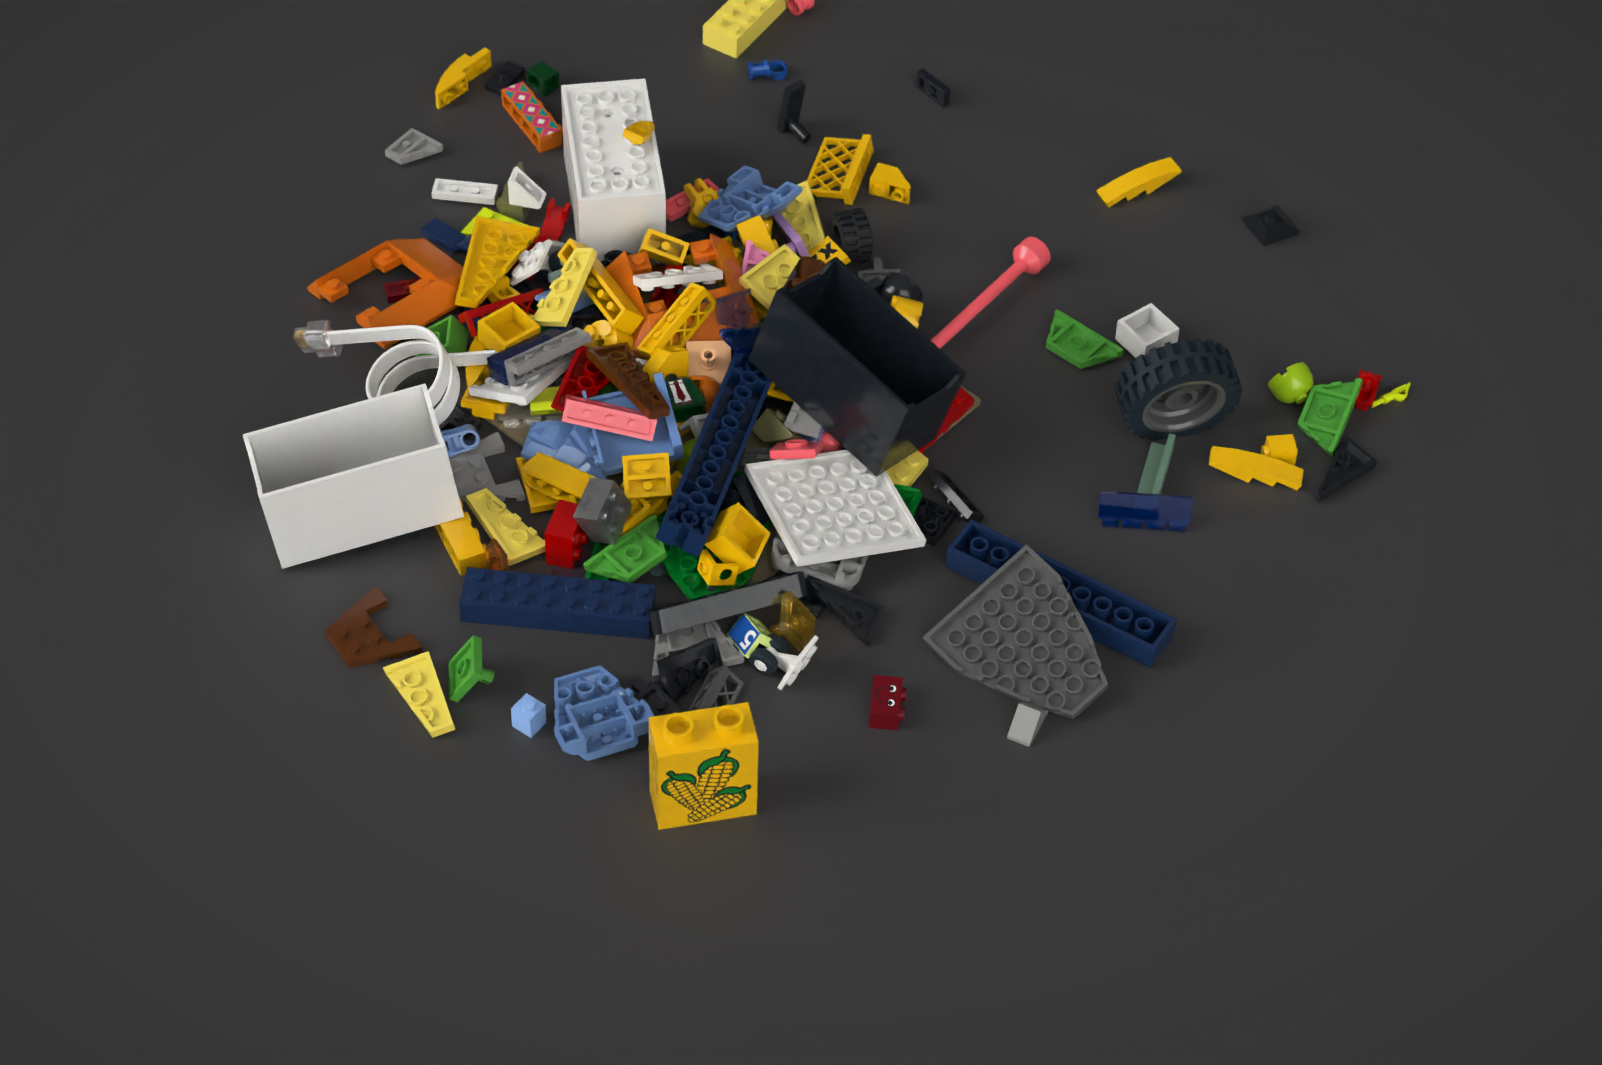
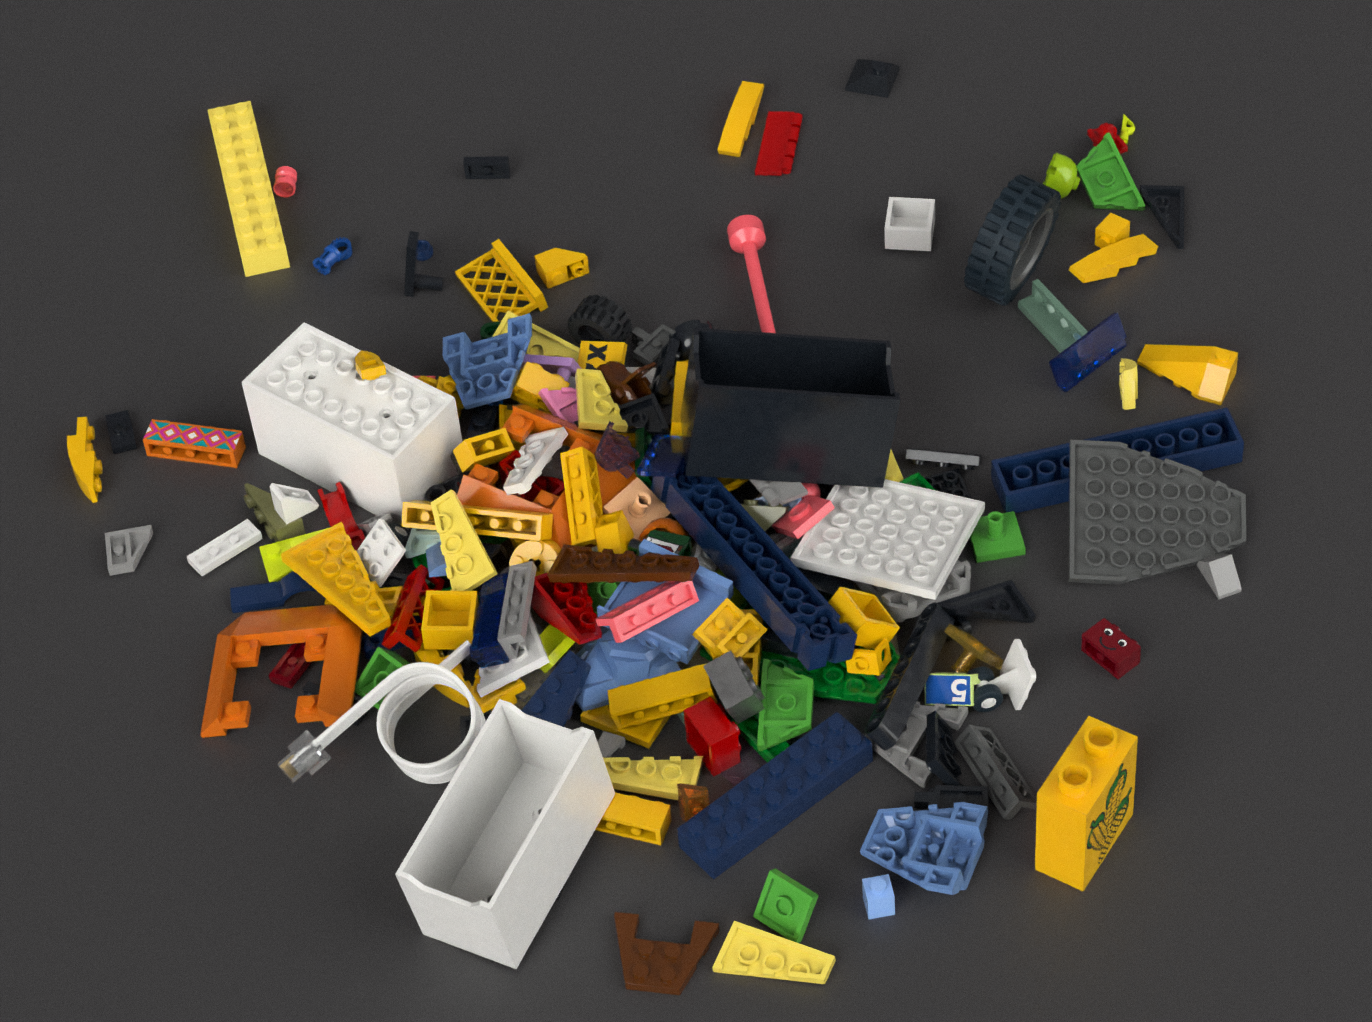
camera: 40 degrees left, 0 degrees up
(505, 434) = (558, 692): none -> dark blue wing
(543, 78) = (157, 405): dark green brick -> none
(823, 108) = (425, 250): none -> dark blue plate
(919, 574) = (997, 537): none -> bright green tile
(1079, 343) = (865, 272): bright green wing -> none
(1142, 551) = (1128, 383): none -> light yellow piece
(1144, 218) = (778, 143): none -> red windscreen
(1206, 583) = (1200, 369): none -> yellow wedge

